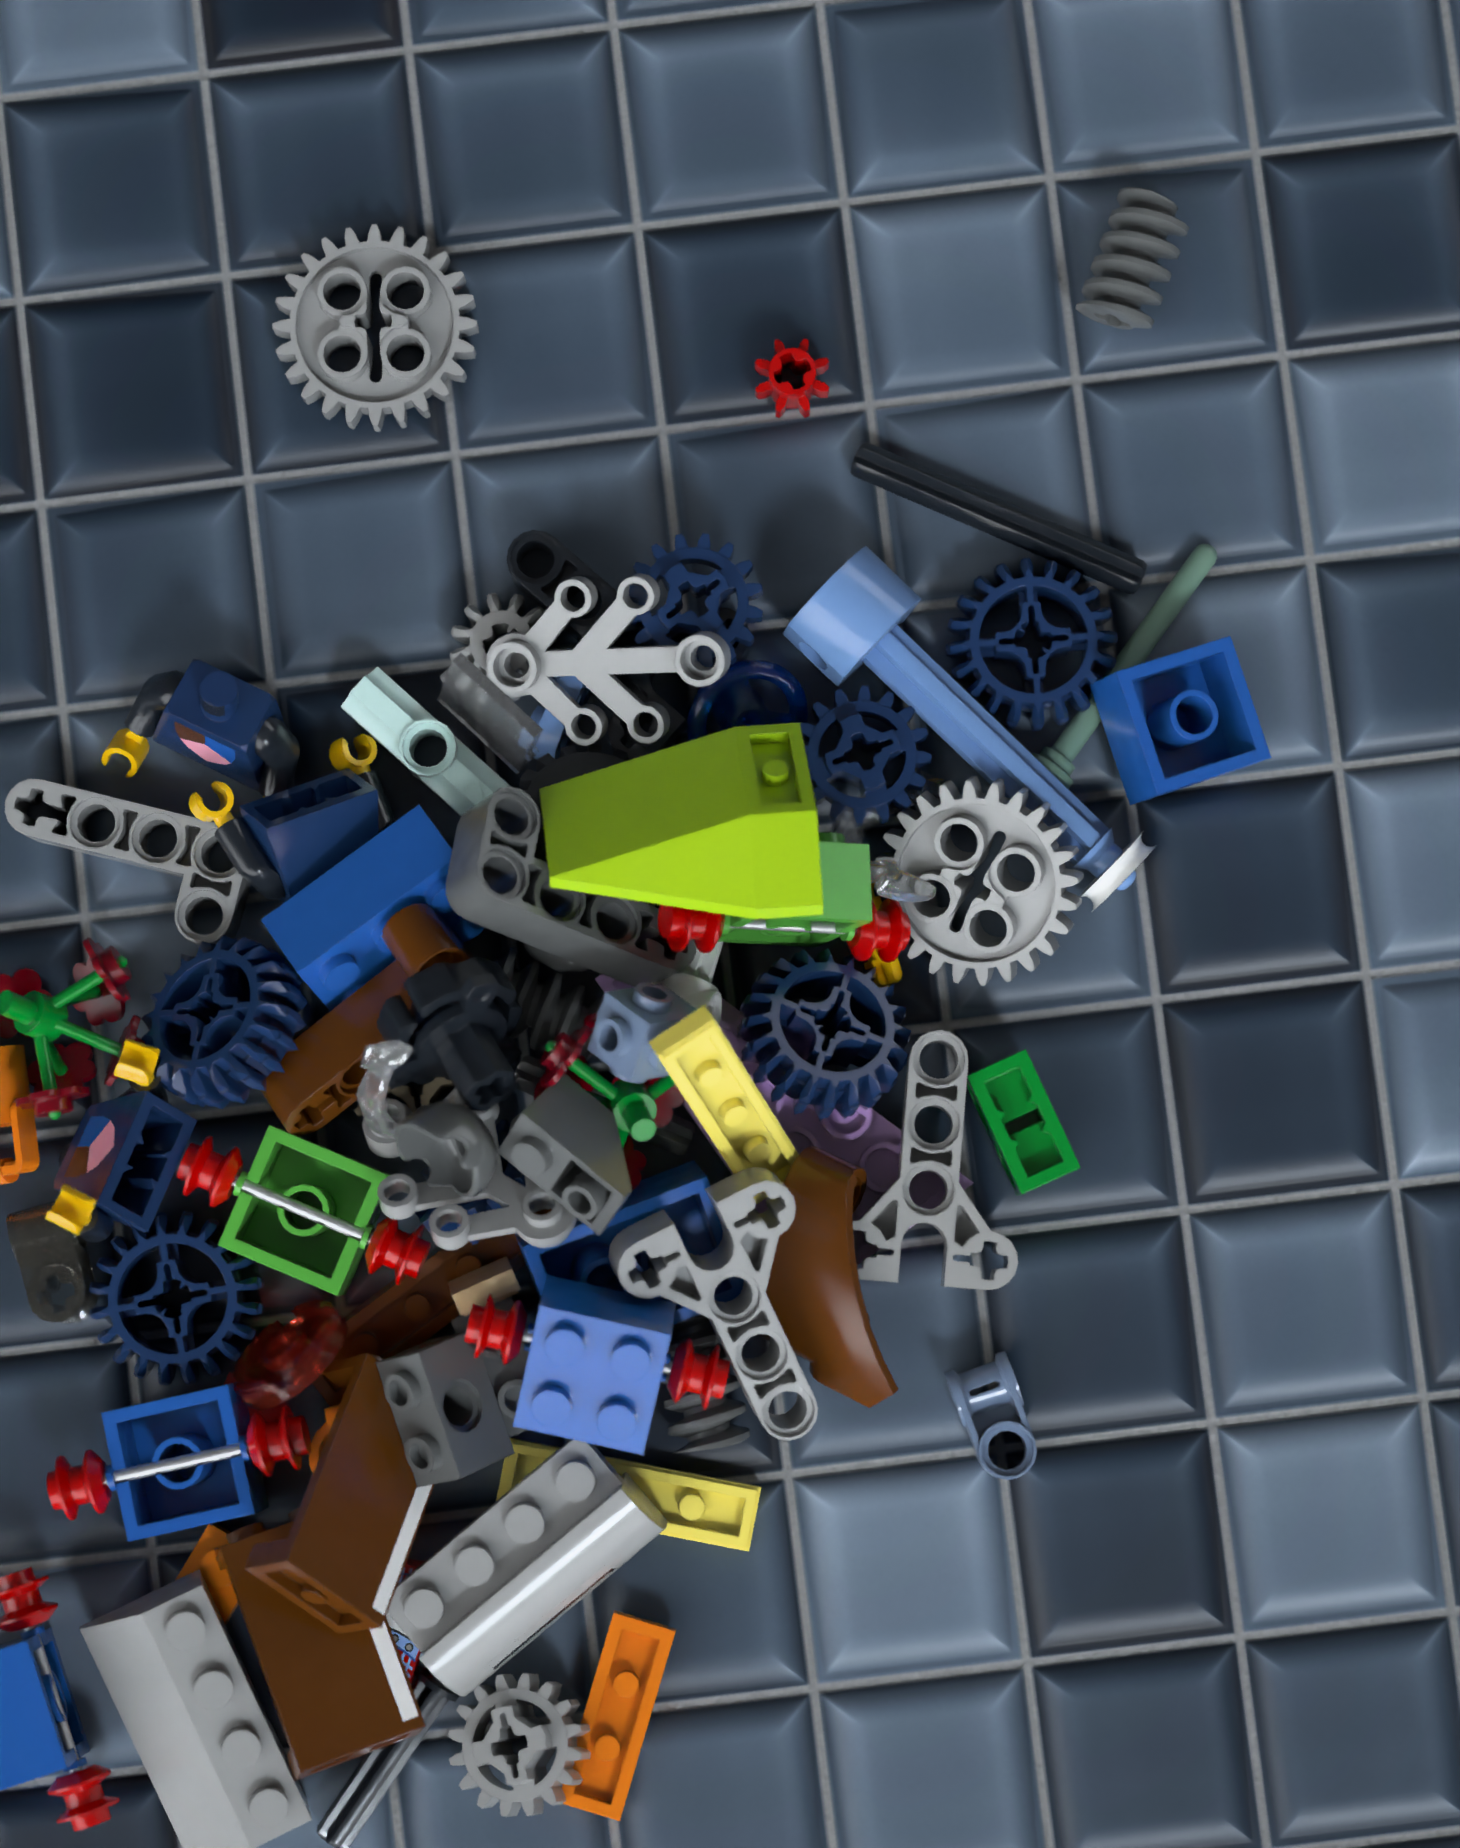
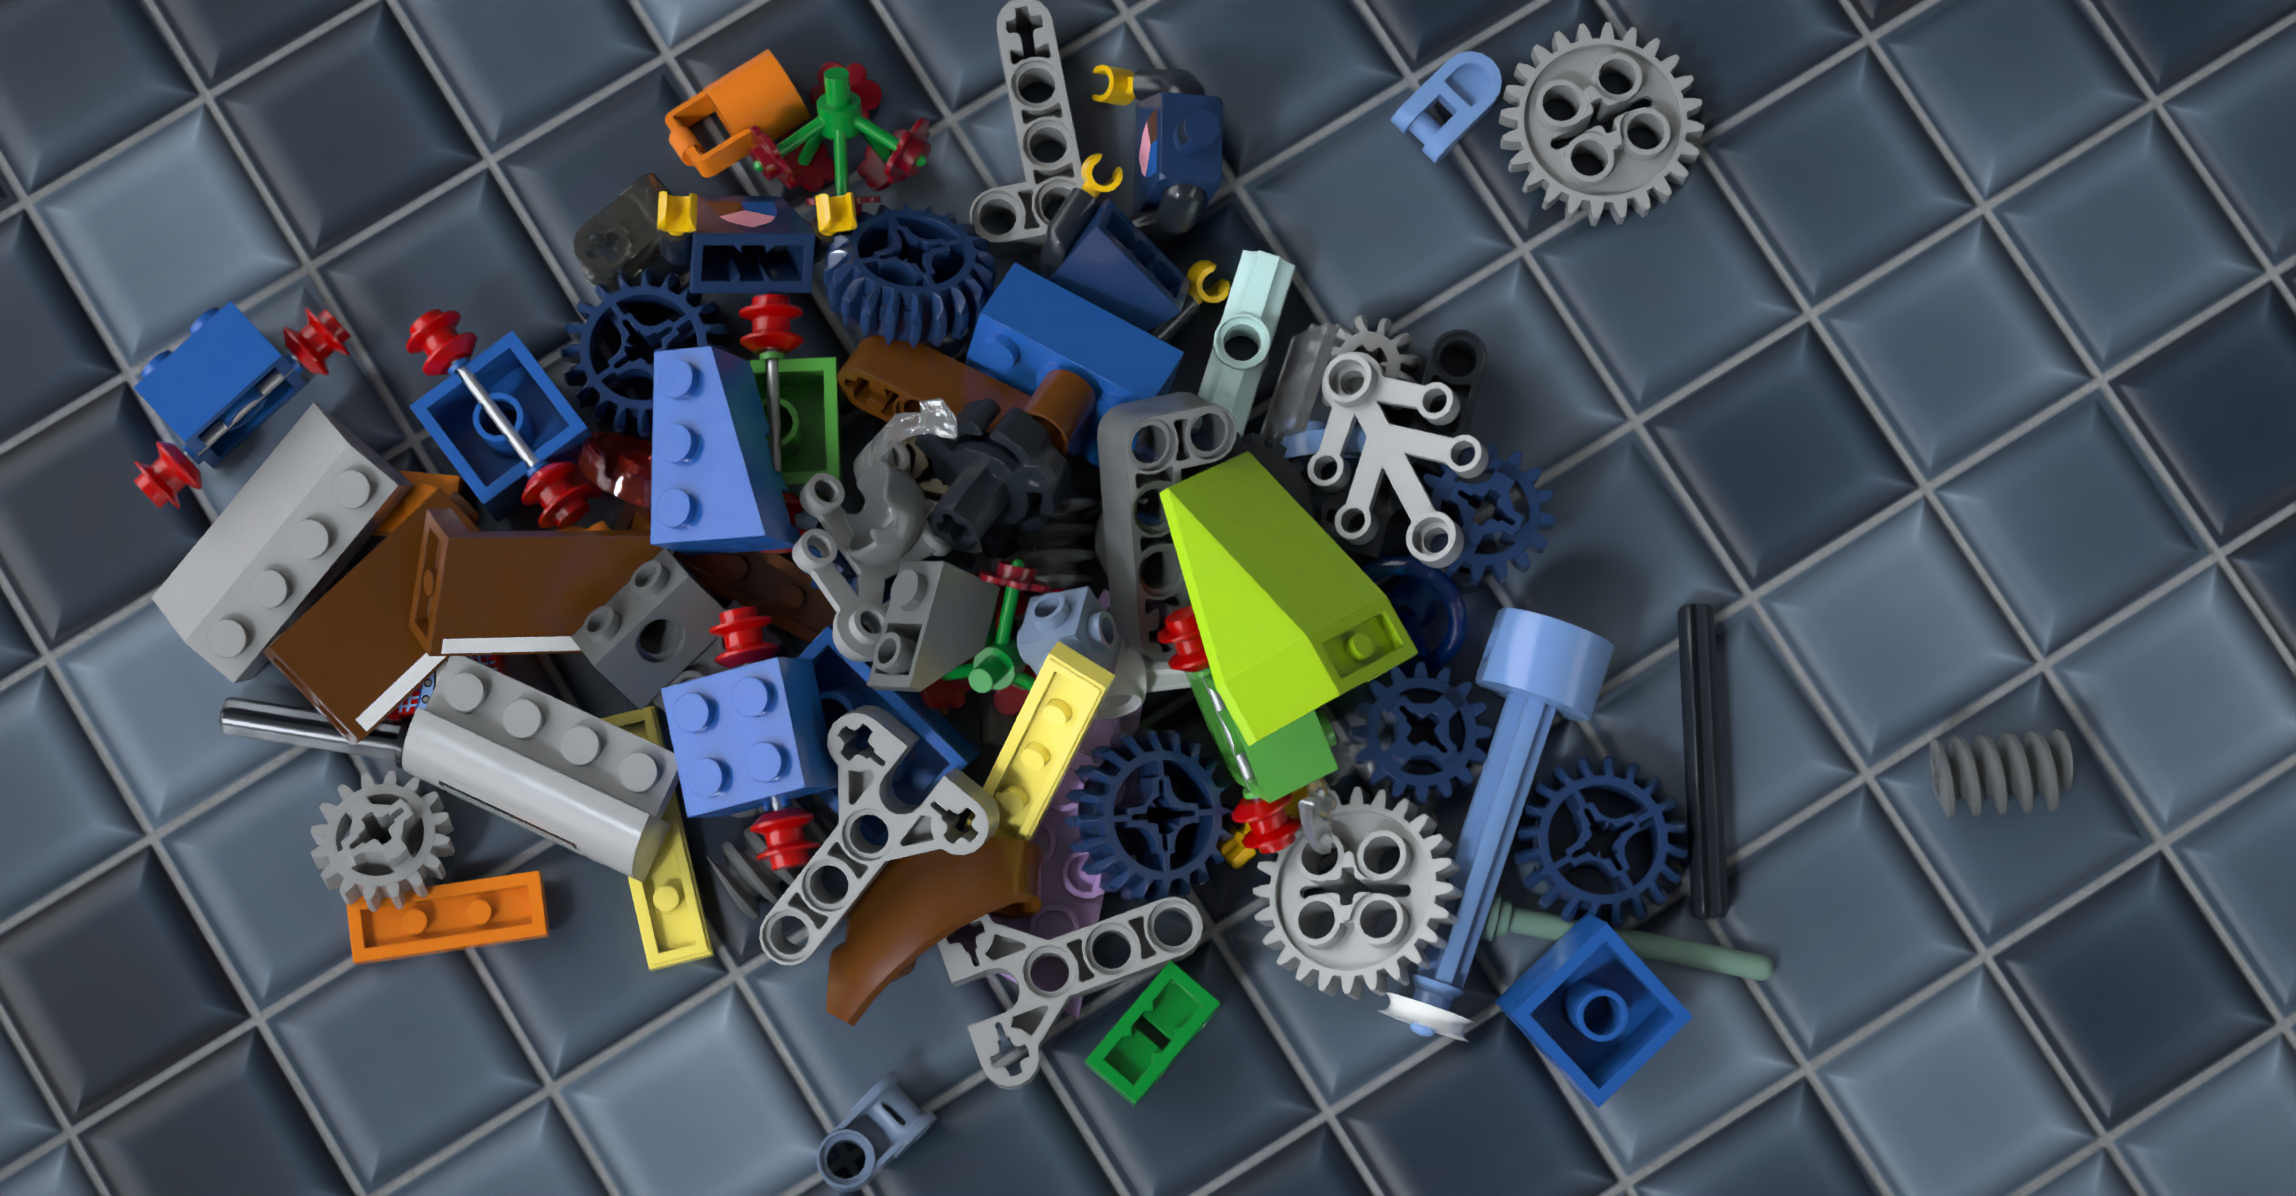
camera: 60 degrees right, 5 degrees down
(285, 432) = (1466, 87): none -> medium blue plate
(316, 1280) = (712, 458): none -> wedge
(475, 1286) = (788, 622): tan tile -> none
(800, 363) = (1730, 498): red gear -> none

